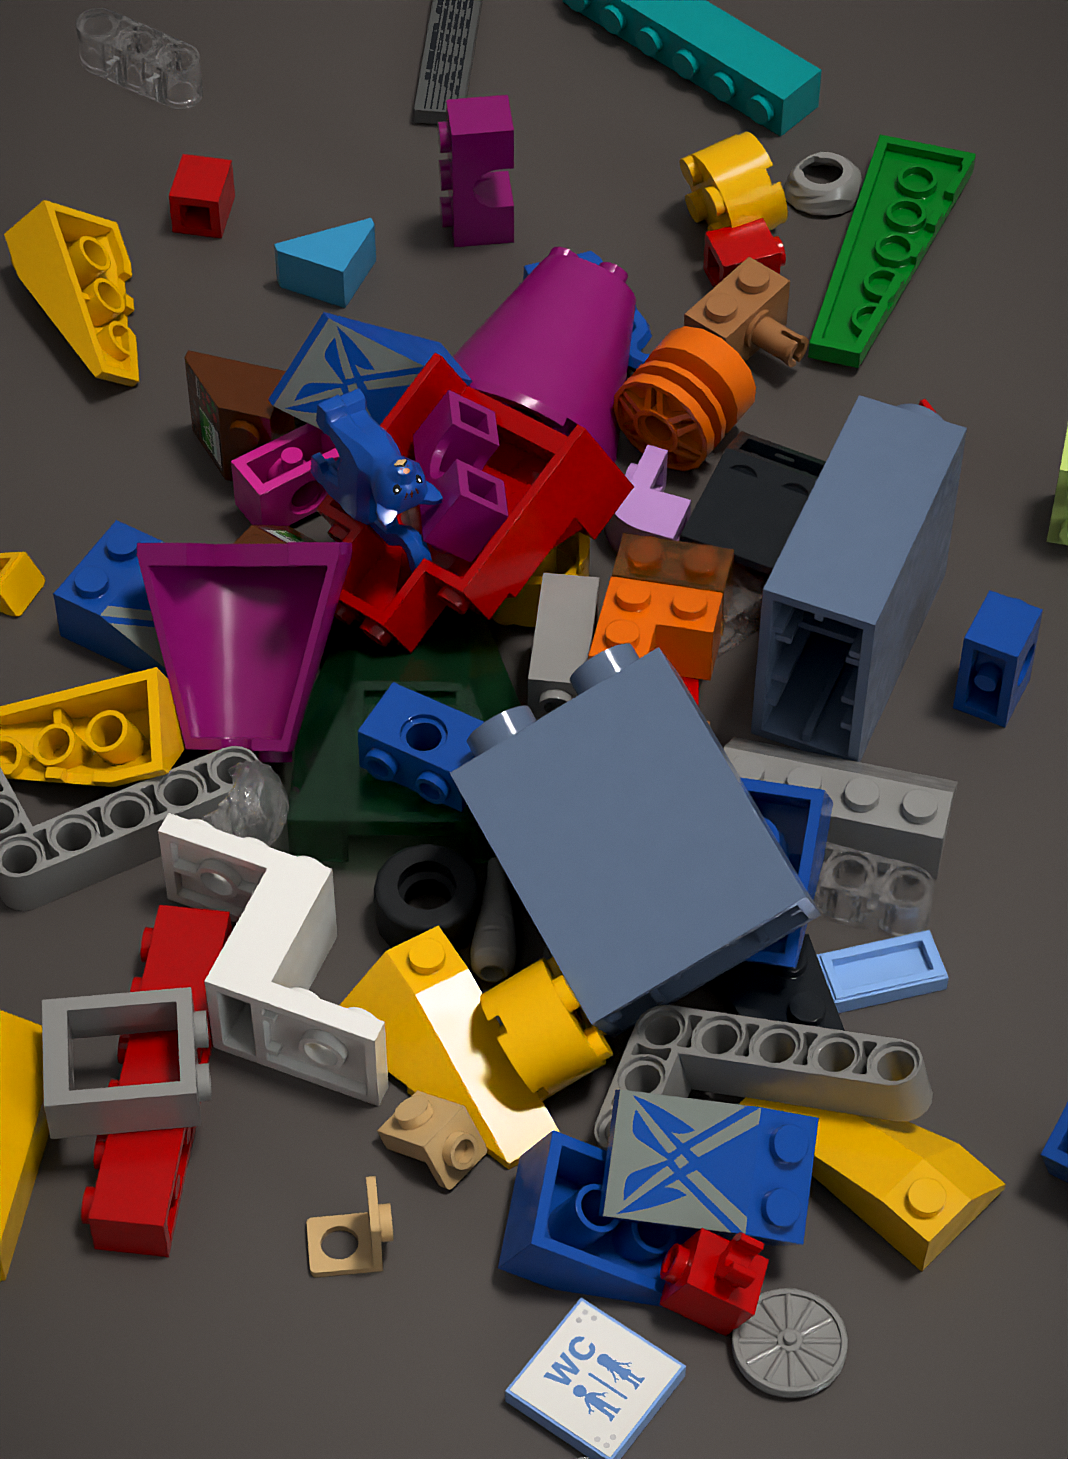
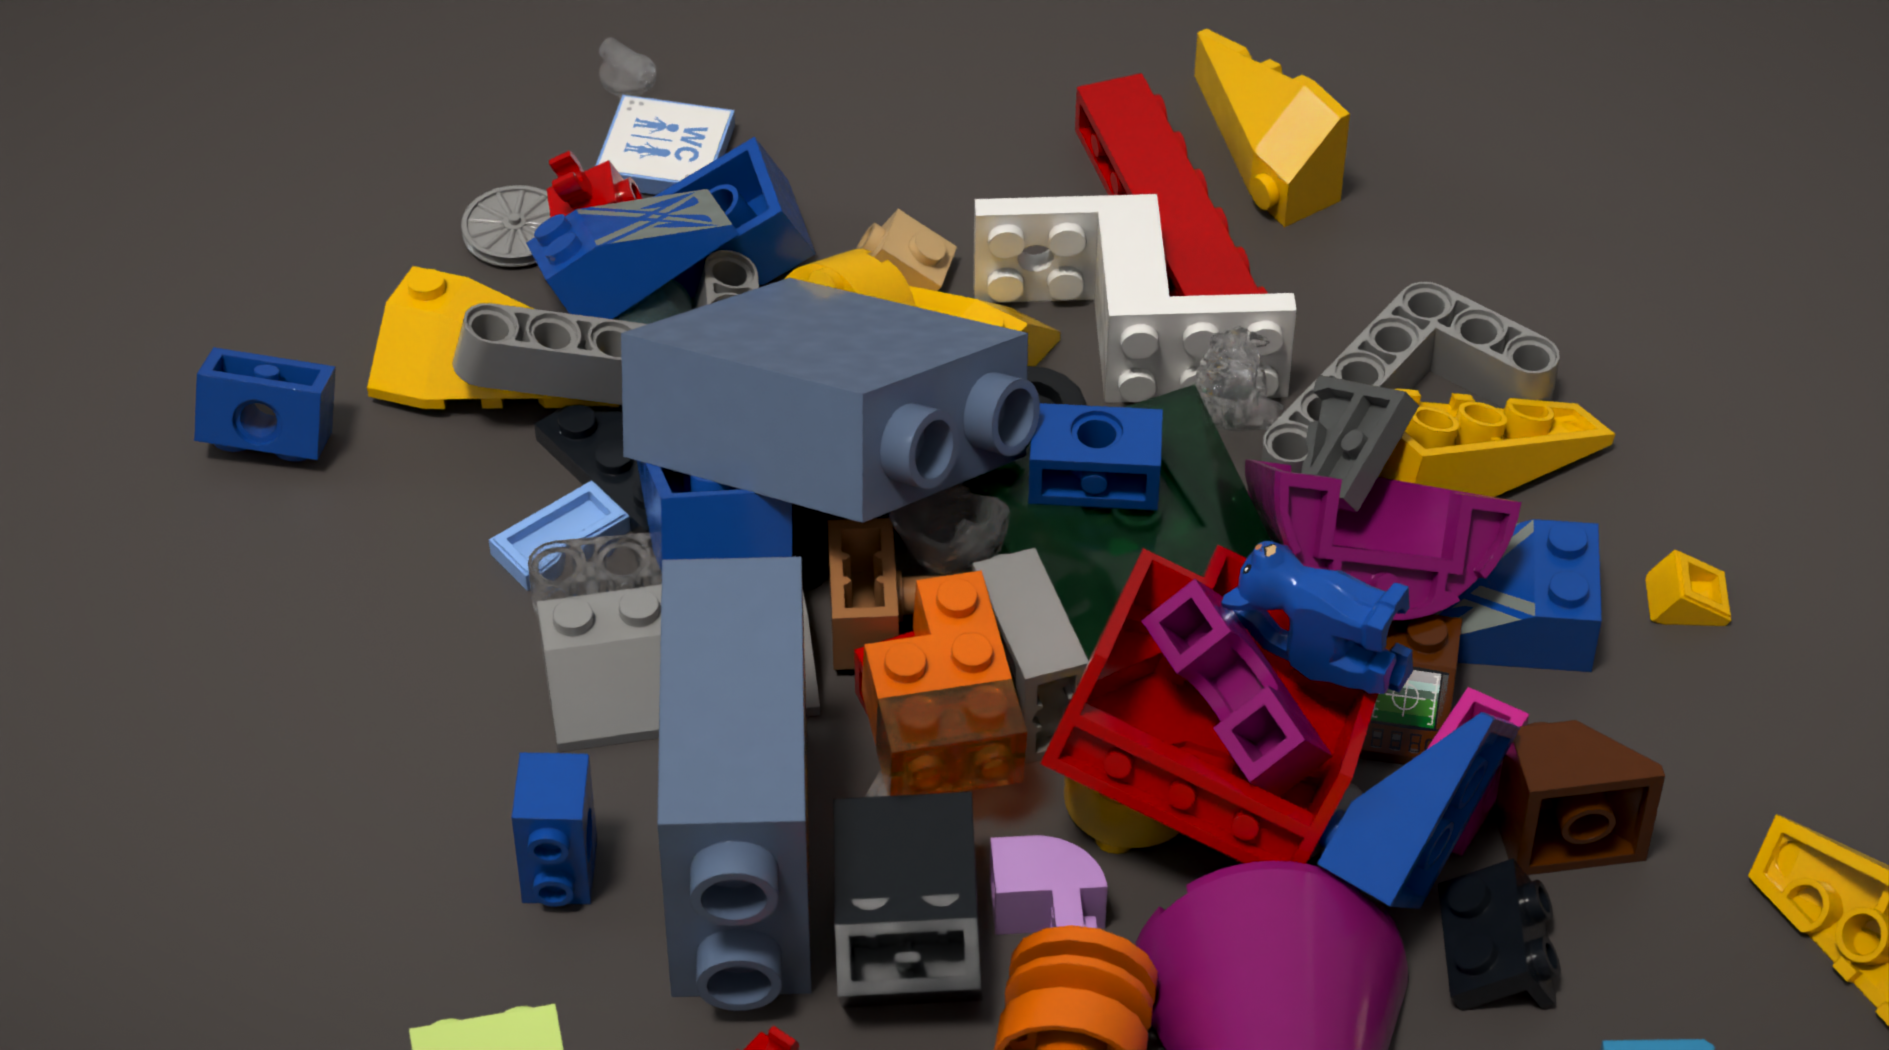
camera: 155 degrees right, 5 degrees down
(123, 1107) = (1250, 139): light grey window -> none
(198, 711) = (1355, 434): none -> dark grey wing
(367, 1227) = (910, 166): tan bracket -> none

